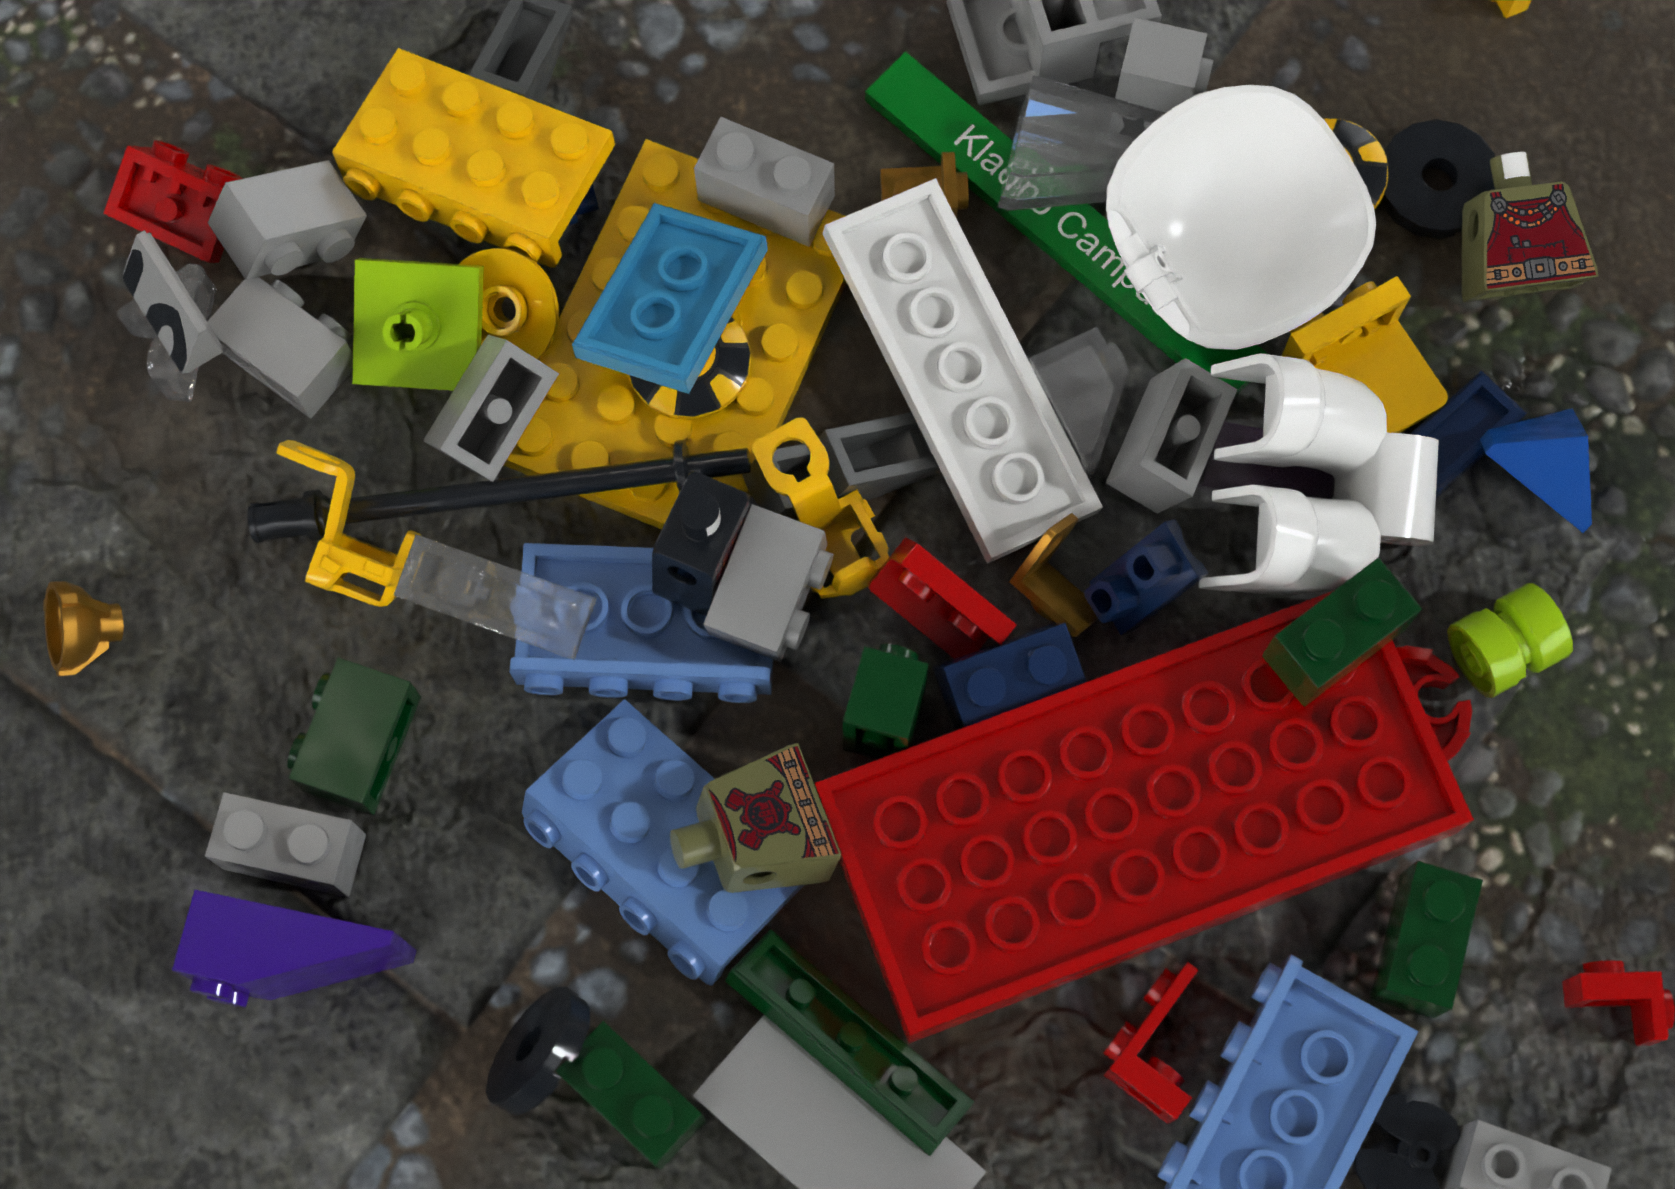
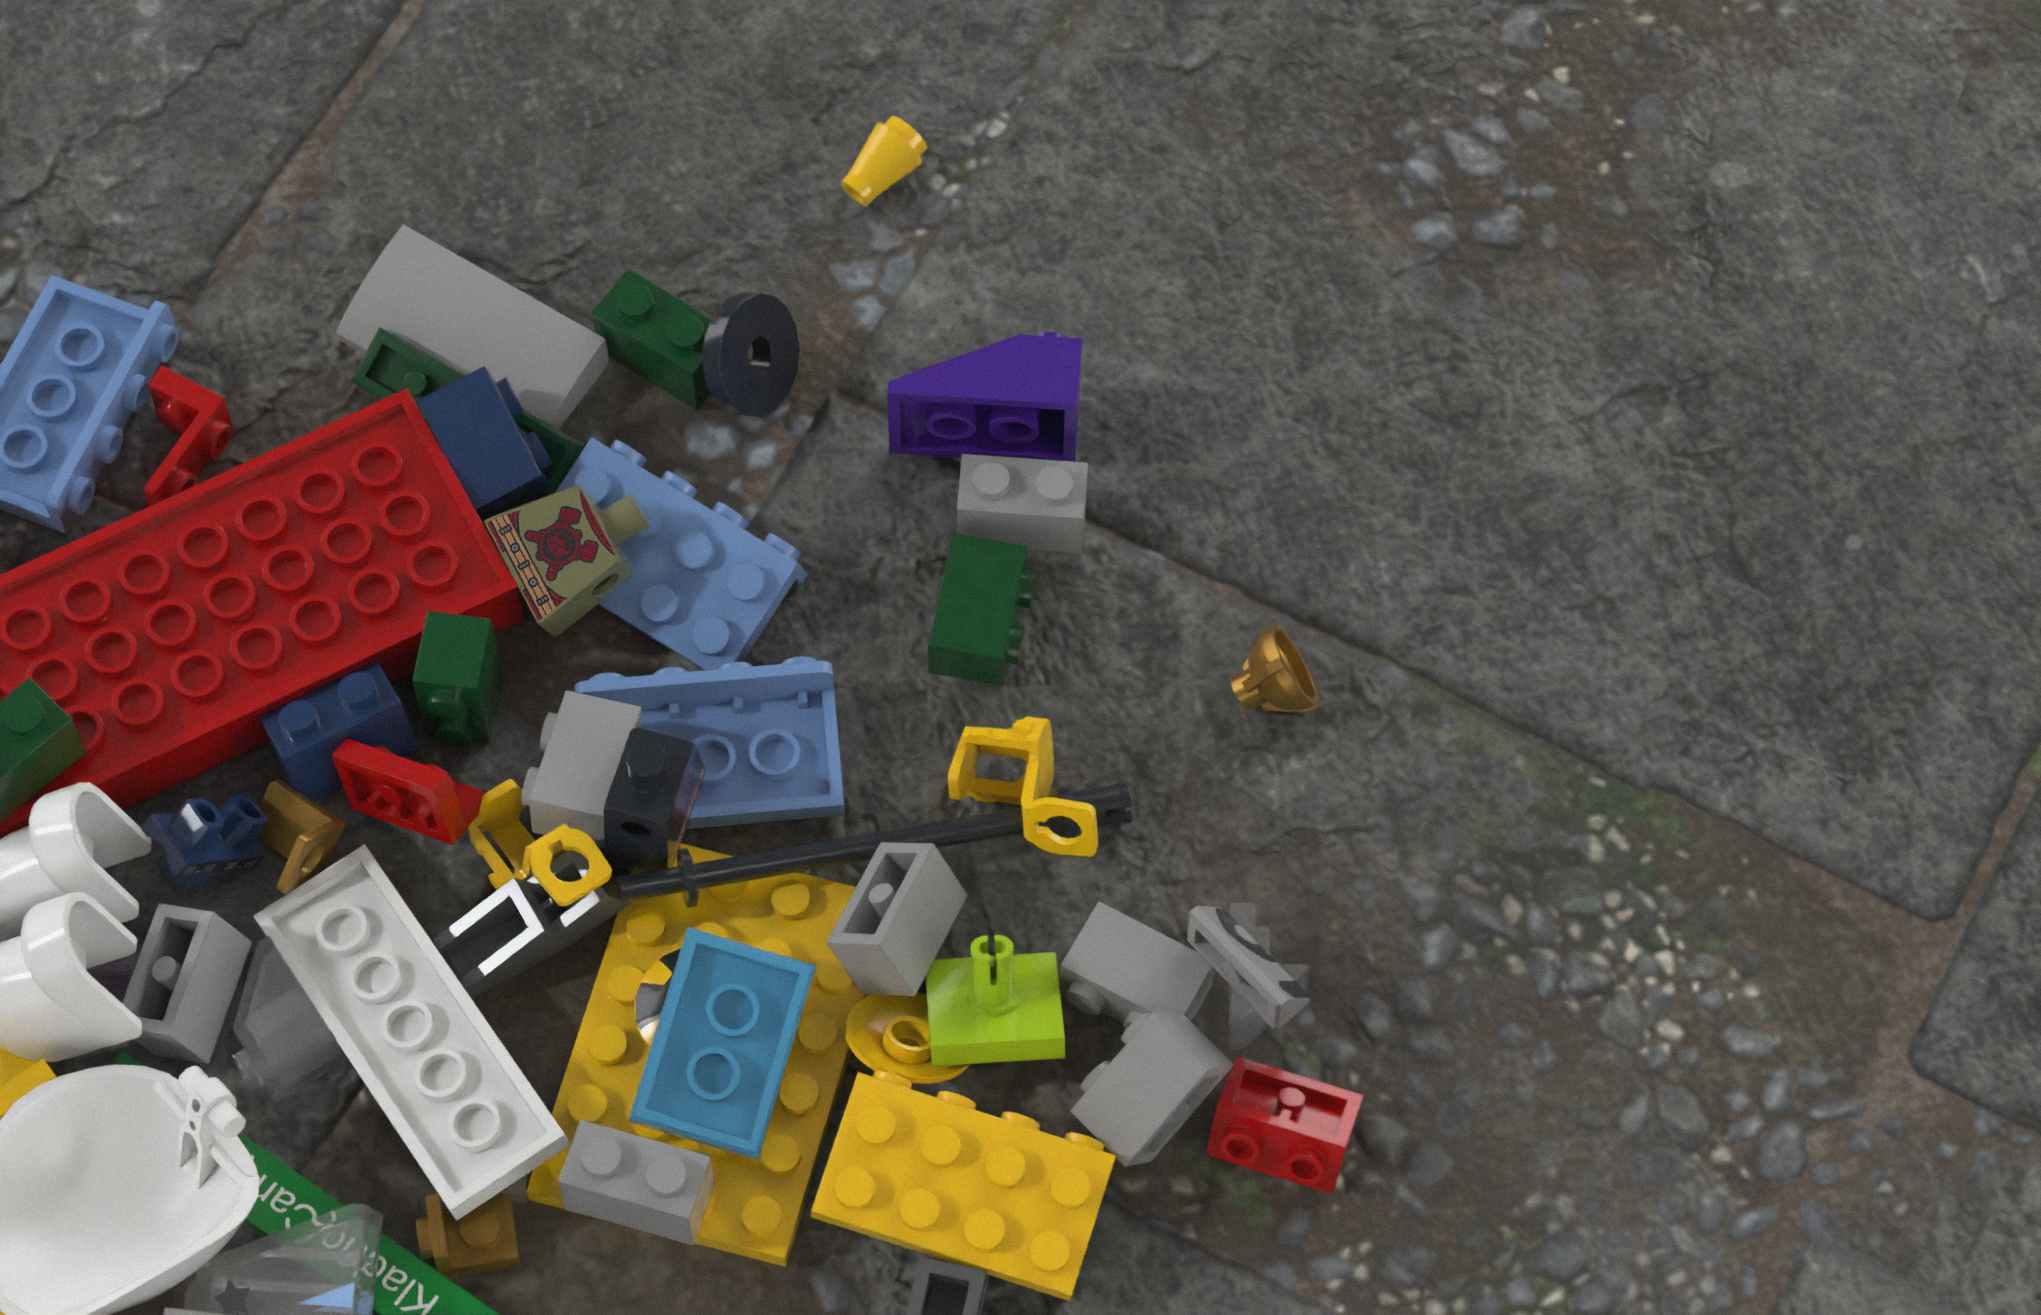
camera: 170 degrees right, 10 degrees down
(495, 597) = (862, 732): clear slope -> none
(832, 972) = (485, 442): none -> dark blue brick

